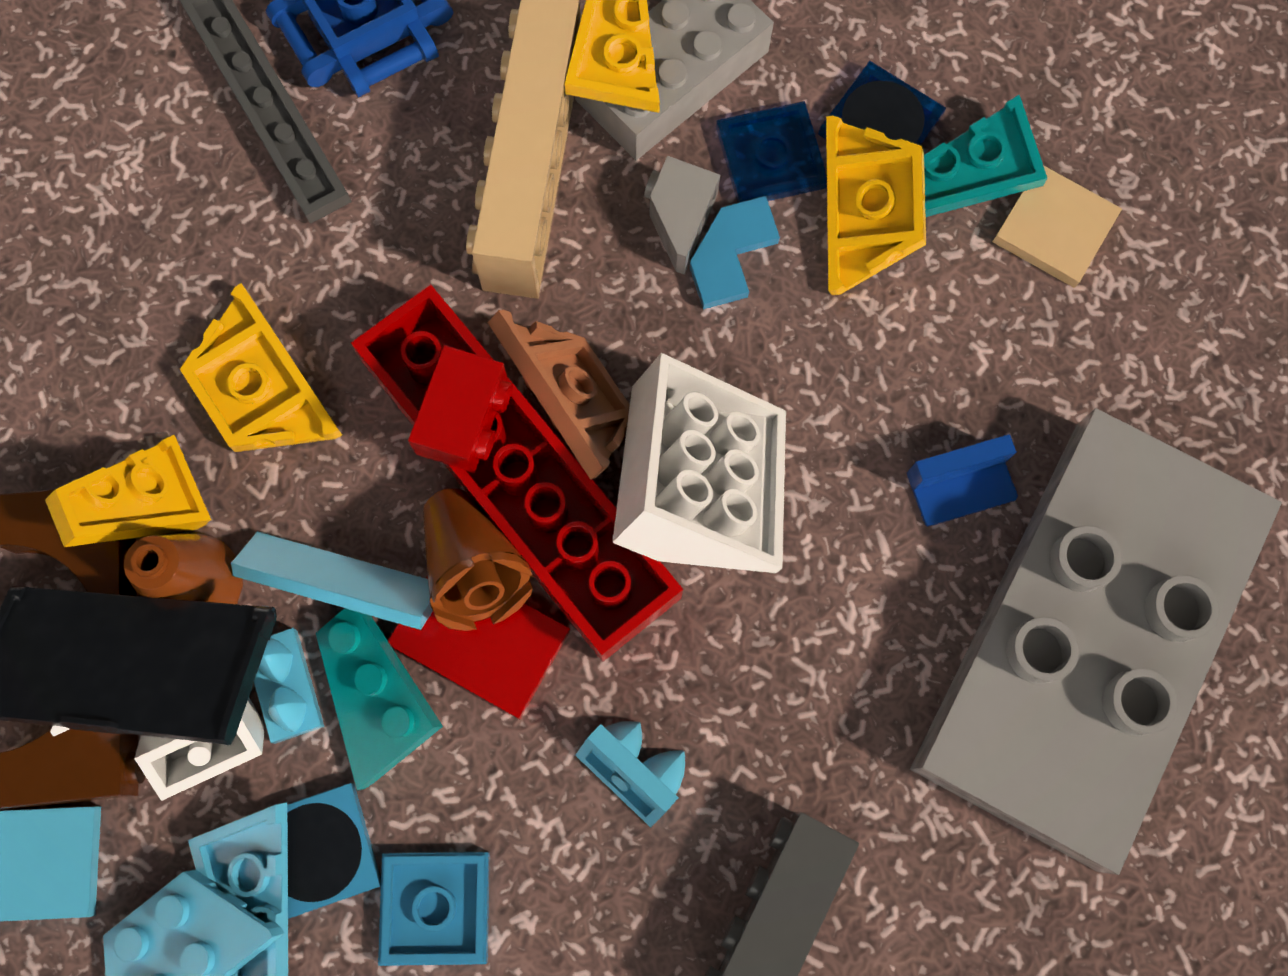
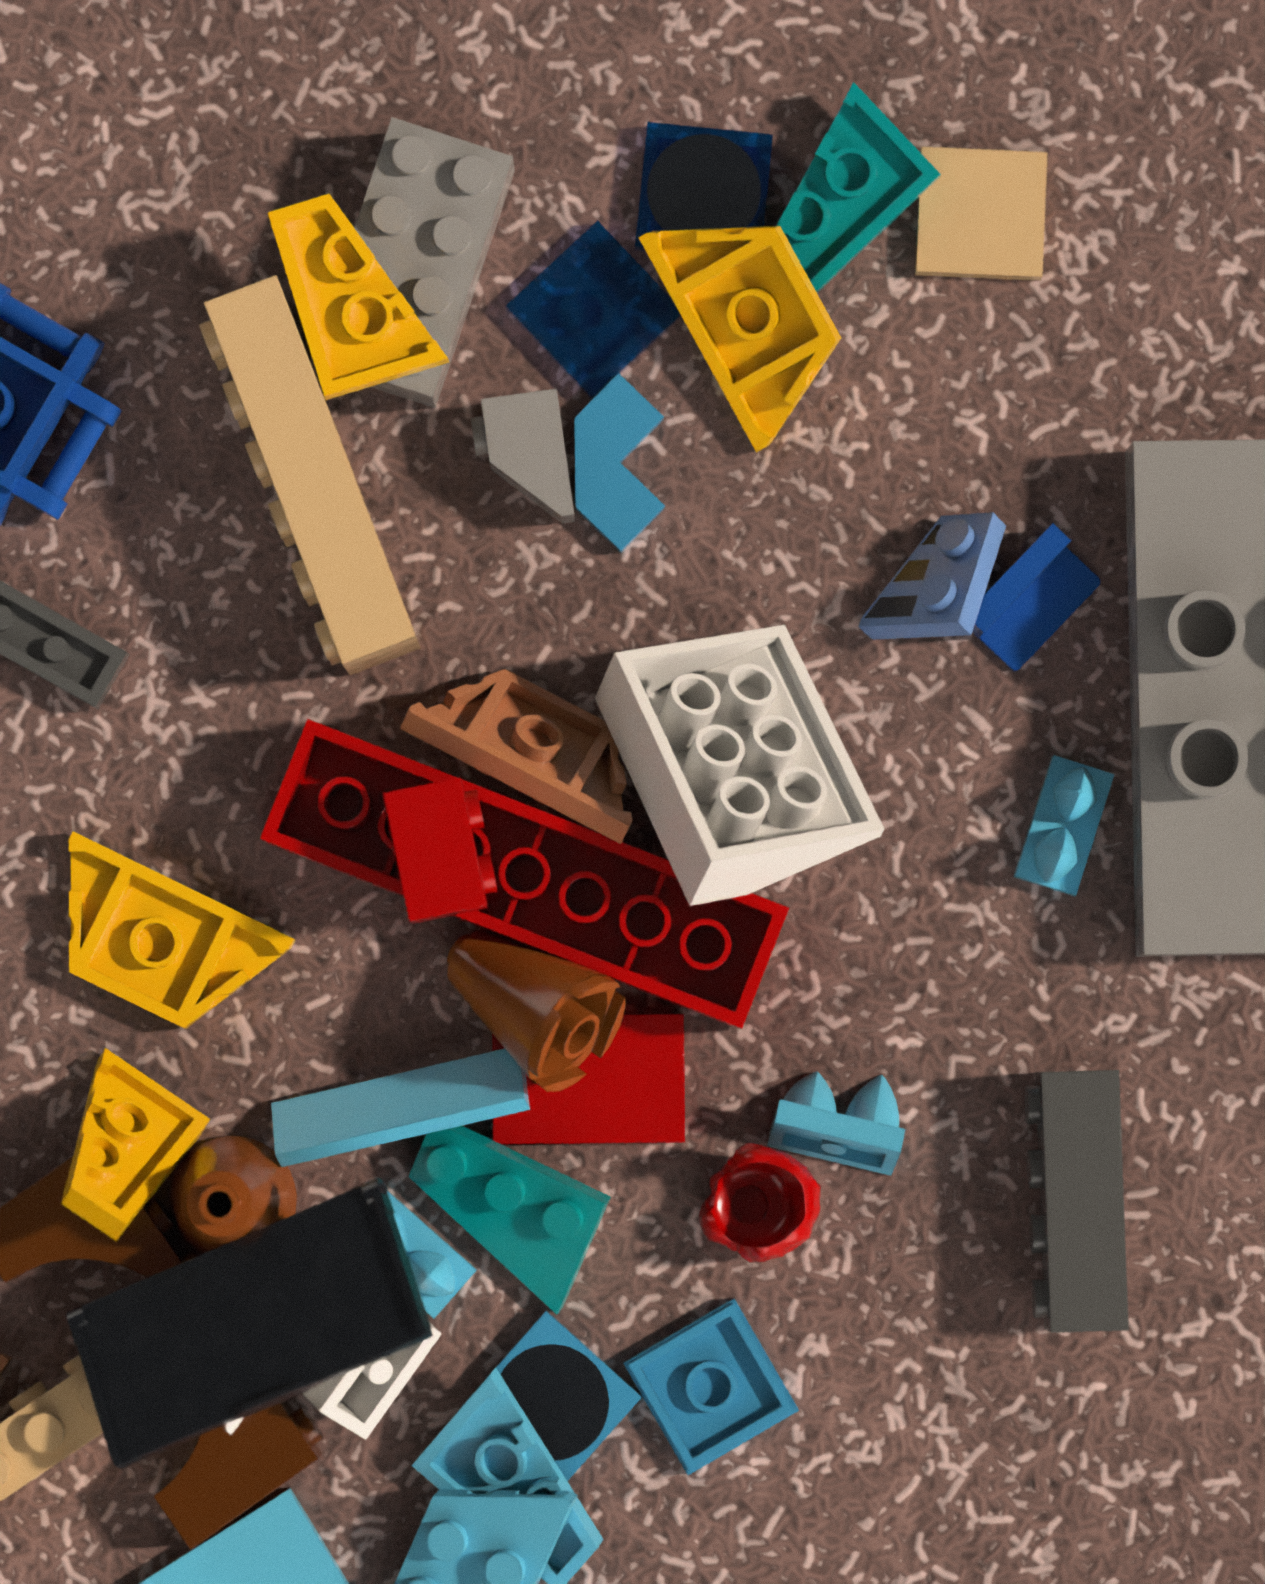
camera: 30 degrees left, 10 degrees up
(545, 793) = (761, 1204): none -> red hair
(906, 648) = (1064, 825): none -> medium azure tile
(909, 435) = (940, 582): none -> medium blue wing

